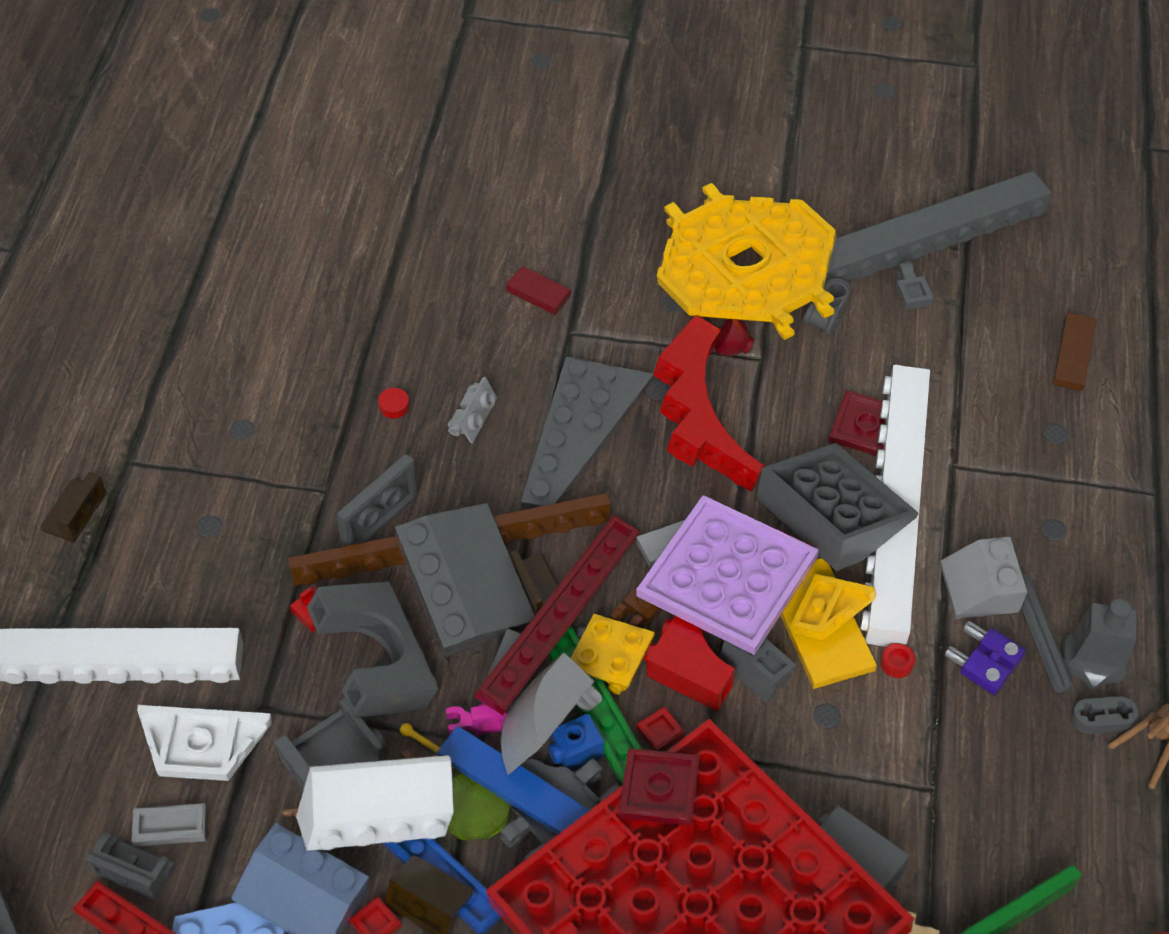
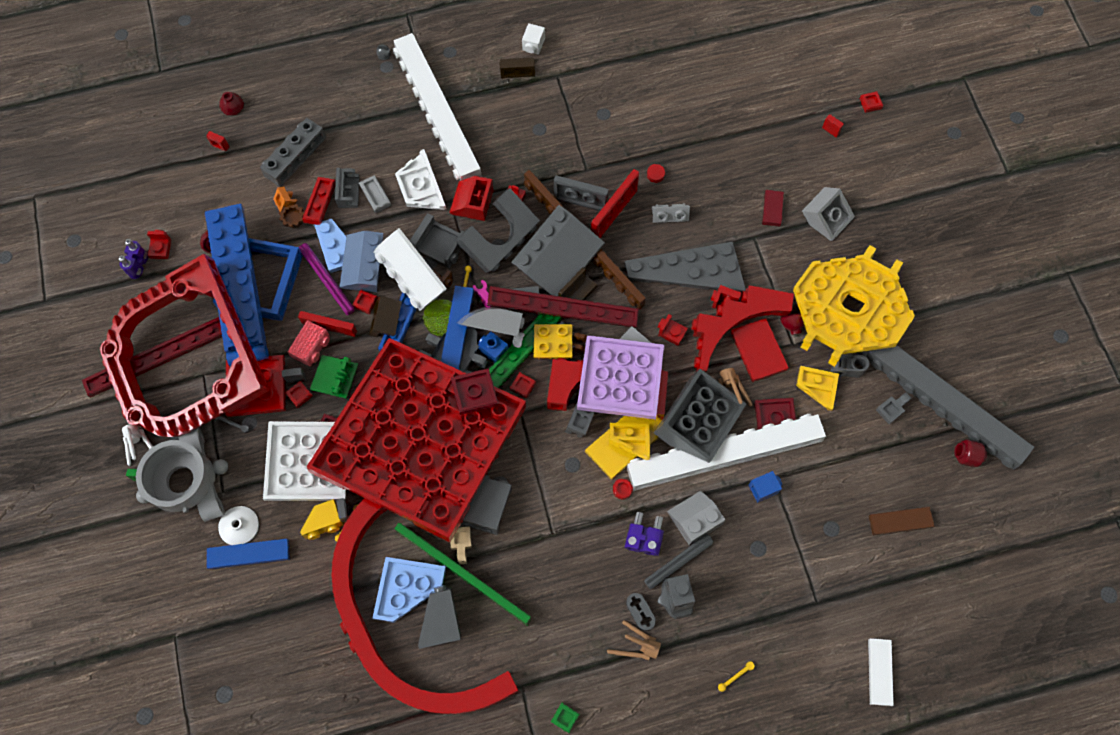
camera: 70 degrees right, 15 degrees up
(41, 462) = (533, 39): none -> white brick
(282, 665) = (472, 198): none -> red slope
(427, 466) = (615, 204): none -> red tile
(440, 117) = (871, 102): none -> red tile
(453, 169) = (832, 125): none -> red tile
(584, 230) = (828, 212): none -> light grey slope
(650, 400) = (724, 293): none -> red bracket
(669, 490) = (671, 330): none -> red bracket
(755, 398) = (759, 350): none -> red tile
(784, 448) = (730, 379): none -> medium nougat plant
(842, 353) = (818, 385): none -> yellow wing
(969, 476) = (765, 486): none -> blue brick
(1011, 238) = (970, 453): none -> dark red head

